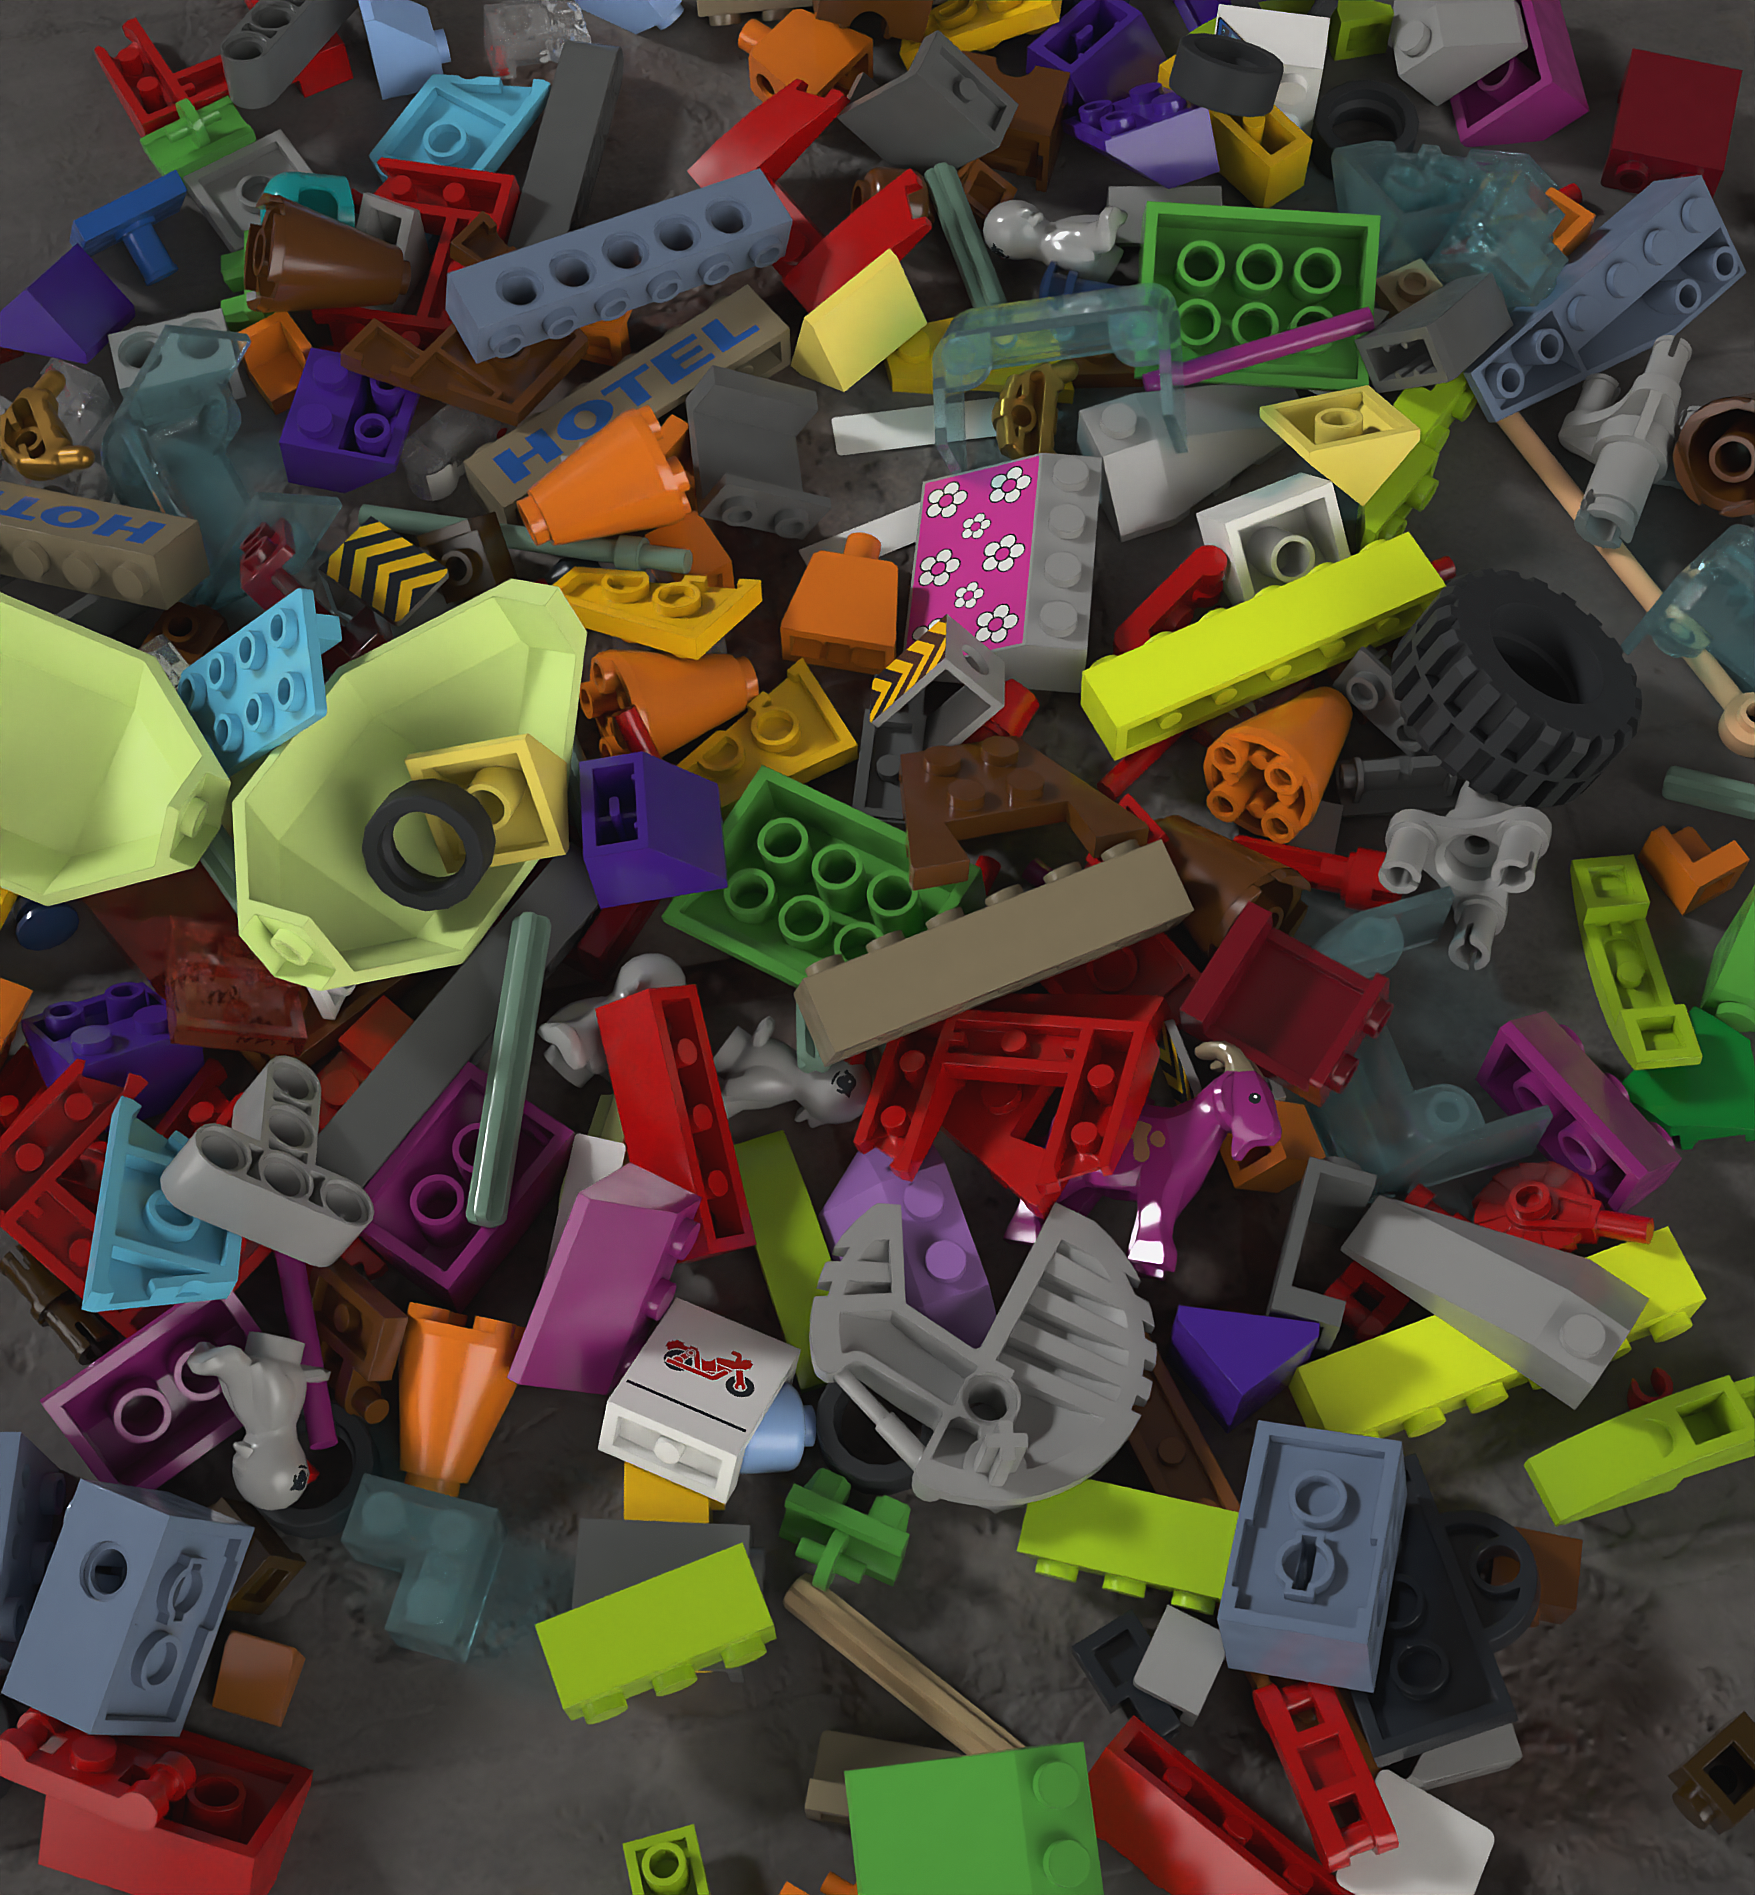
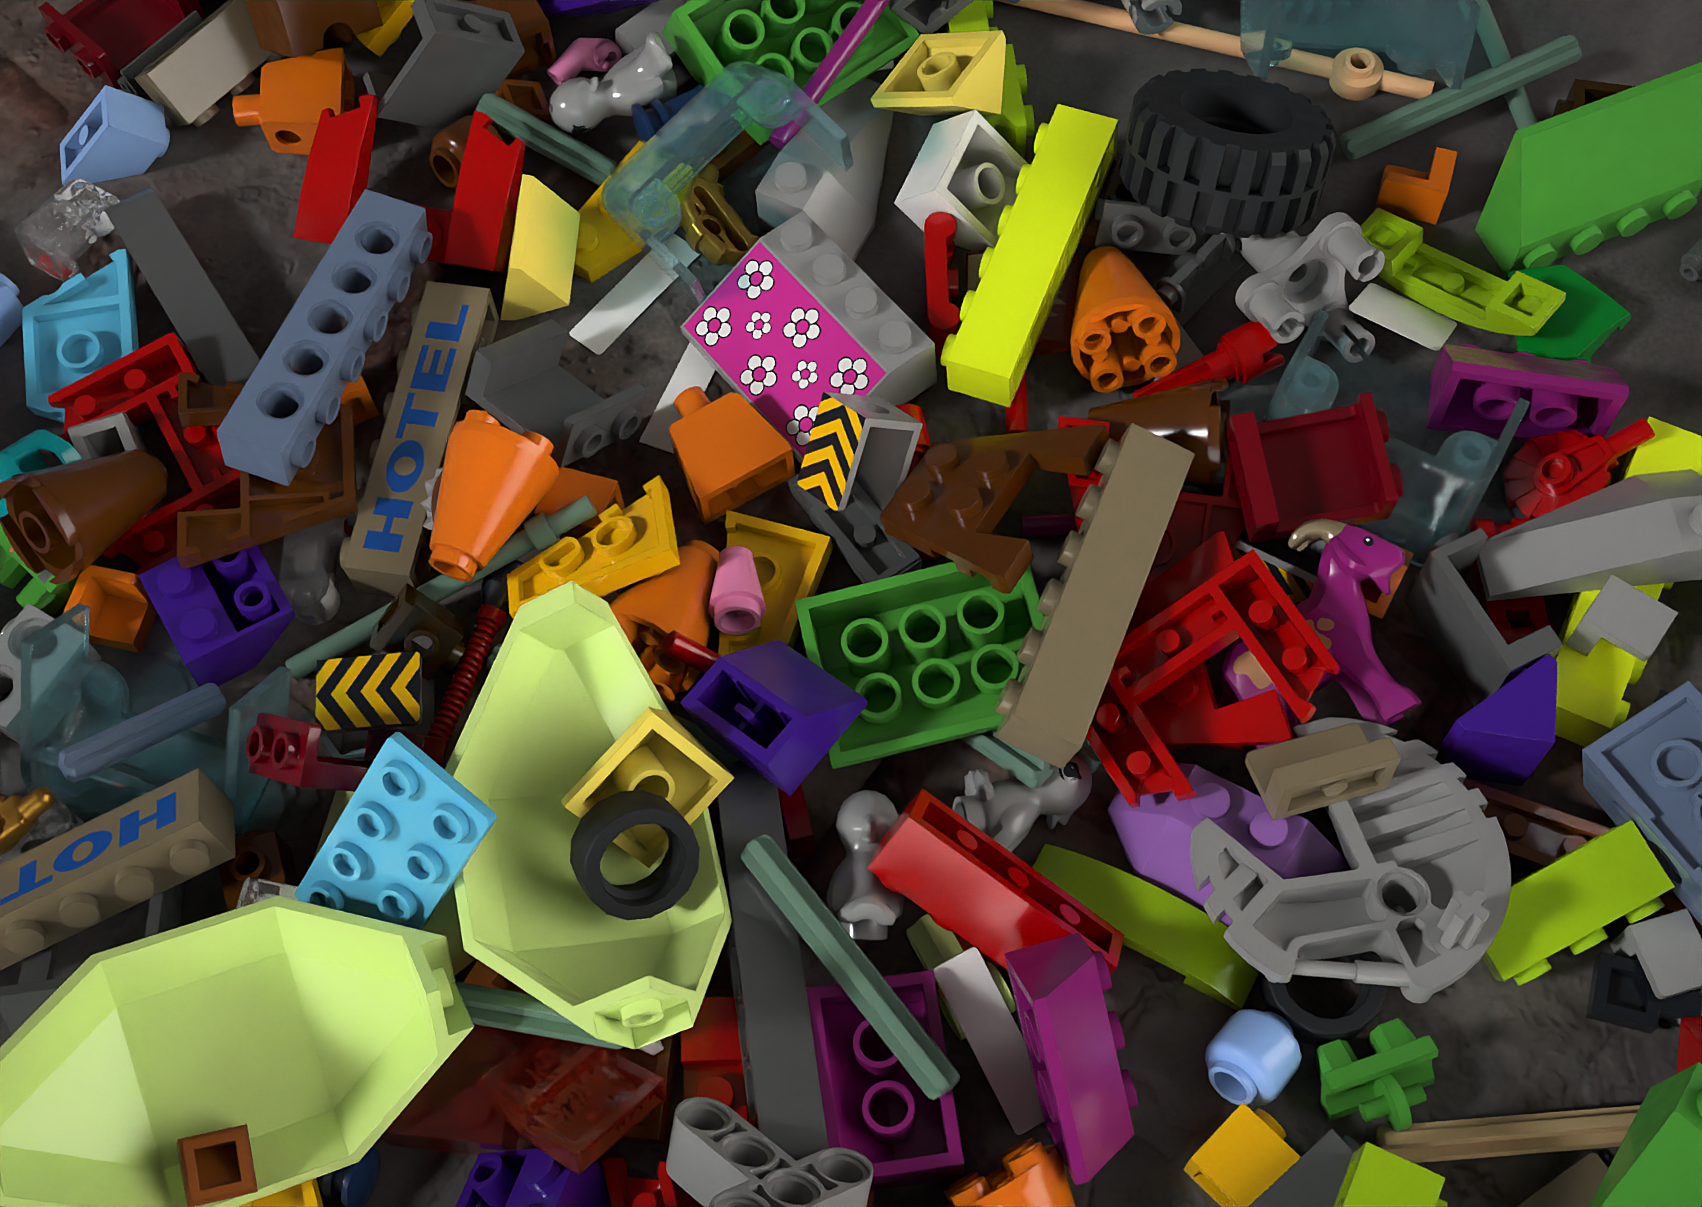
camera: 40 degrees left, 0 degrees up
(202, 468) = (140, 732): none -> sand blue axle
(696, 1399) = (1209, 1076): white panel -> none
(730, 726) = (736, 593): none -> bright pink cone
(1029, 1248) = (1321, 769): none -> dark tan panel
(1071, 191) = (585, 55): none -> bright pink arm
(1424, 1359) = (1623, 618): none -> light grey panel
(1547, 963) = (1403, 316): none -> white sticker

